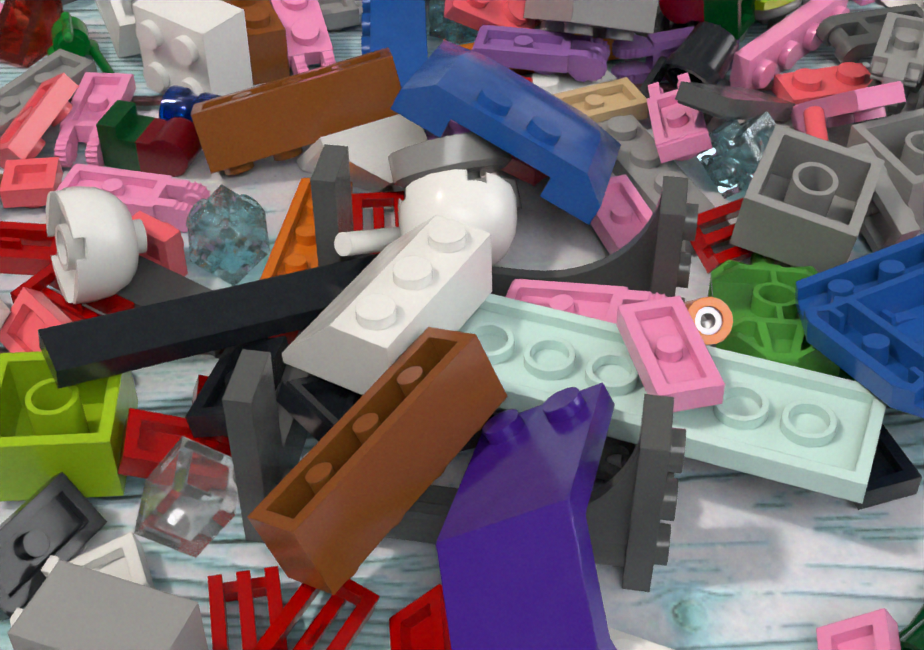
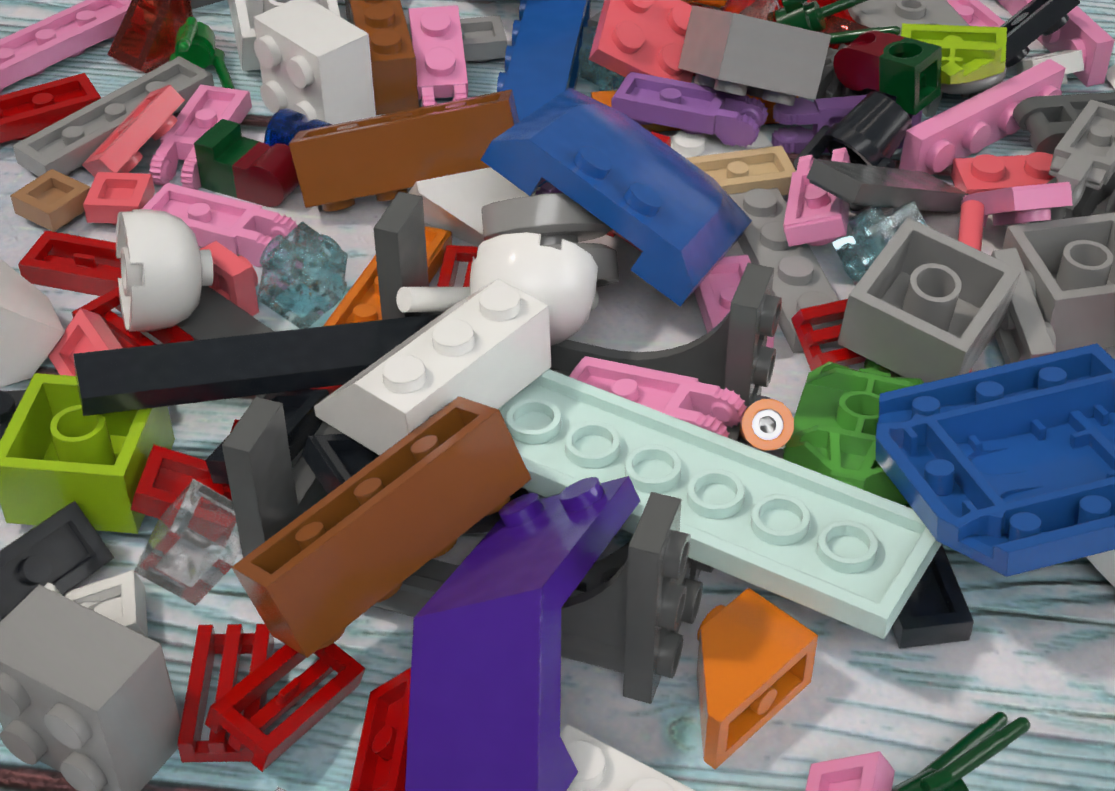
camera: 10 degrees right, 0 degrees up
(670, 353) = (711, 456): bright pink plate -> none
(733, 548) = (748, 670): none -> orange slope

